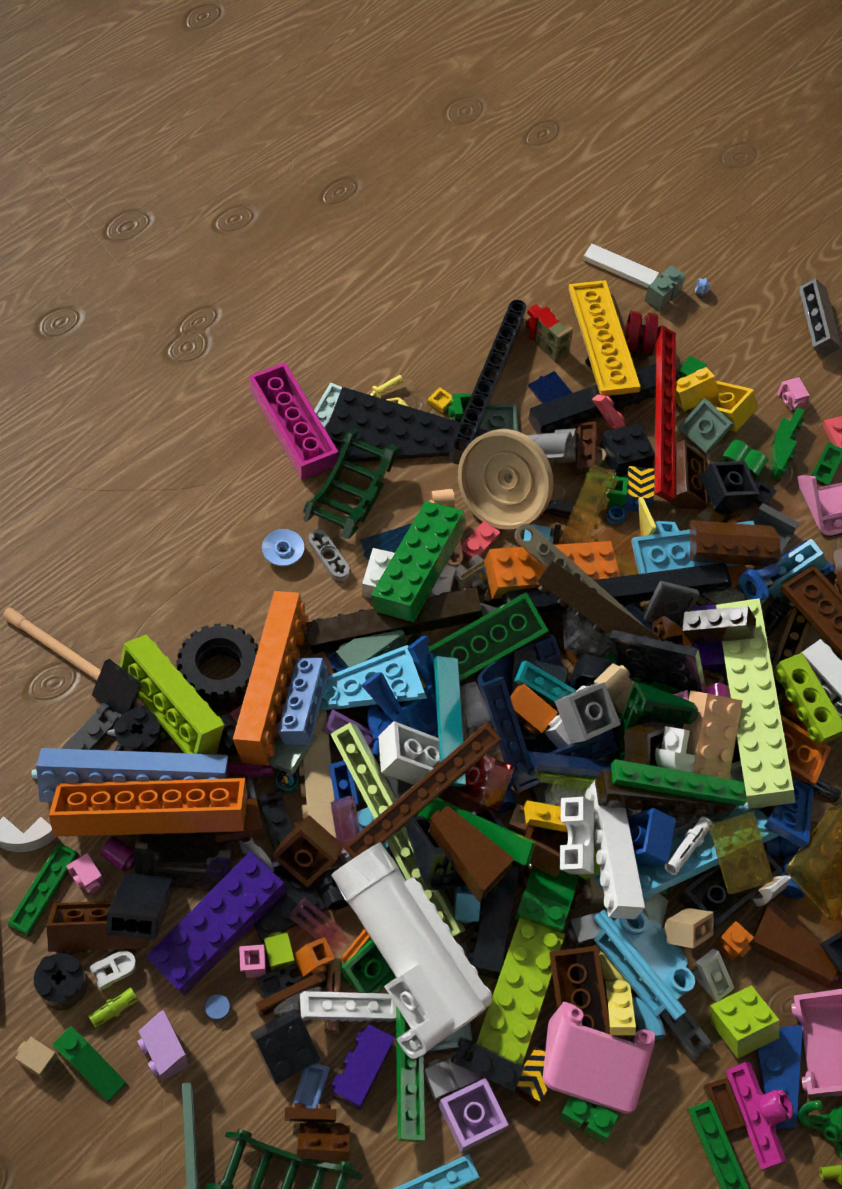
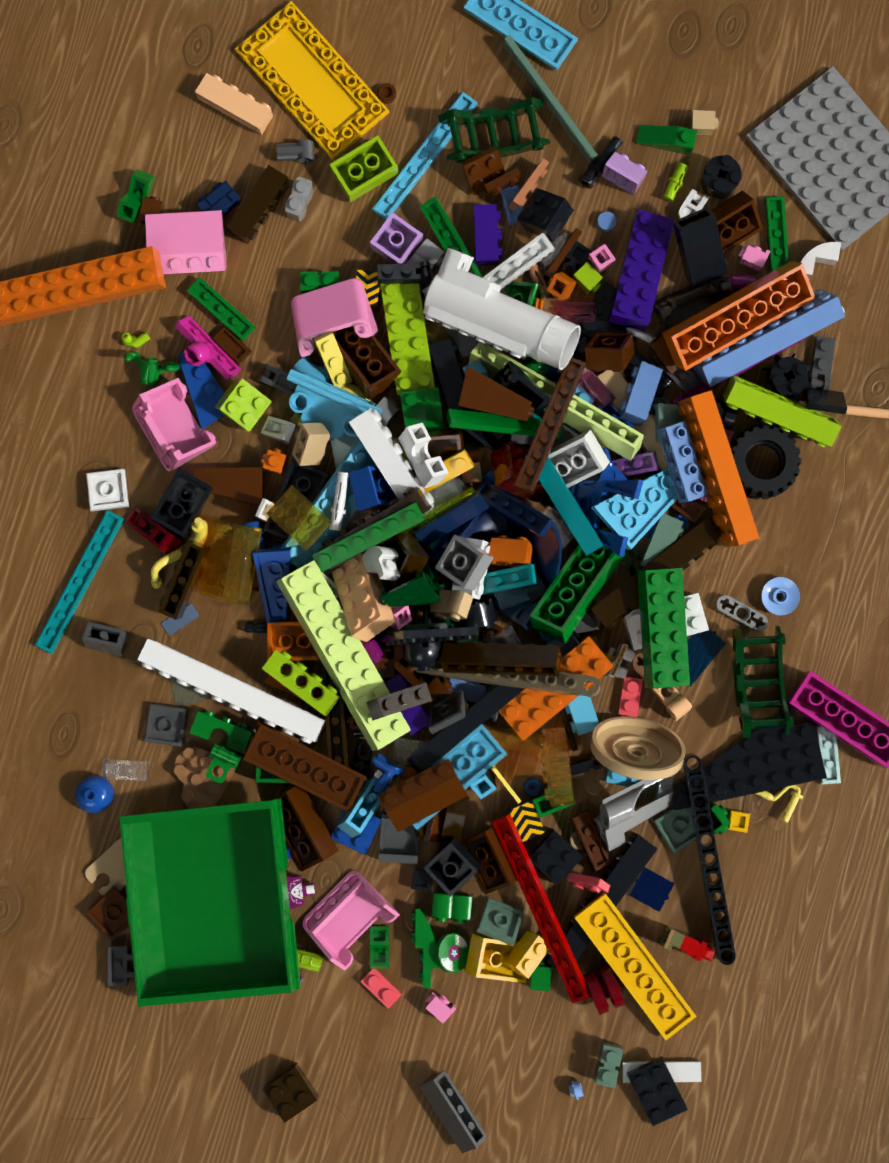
camera: 155 degrees right, 25 degrees up
(191, 1074) = (596, 168): none -> black pin
(281, 1095) = (529, 185): none -> nougat plate
(302, 790) = (640, 393): none -> medium blue brick
(633, 253) = (657, 1091): none -> black plate
(763, 425) = (451, 952): none -> green tile

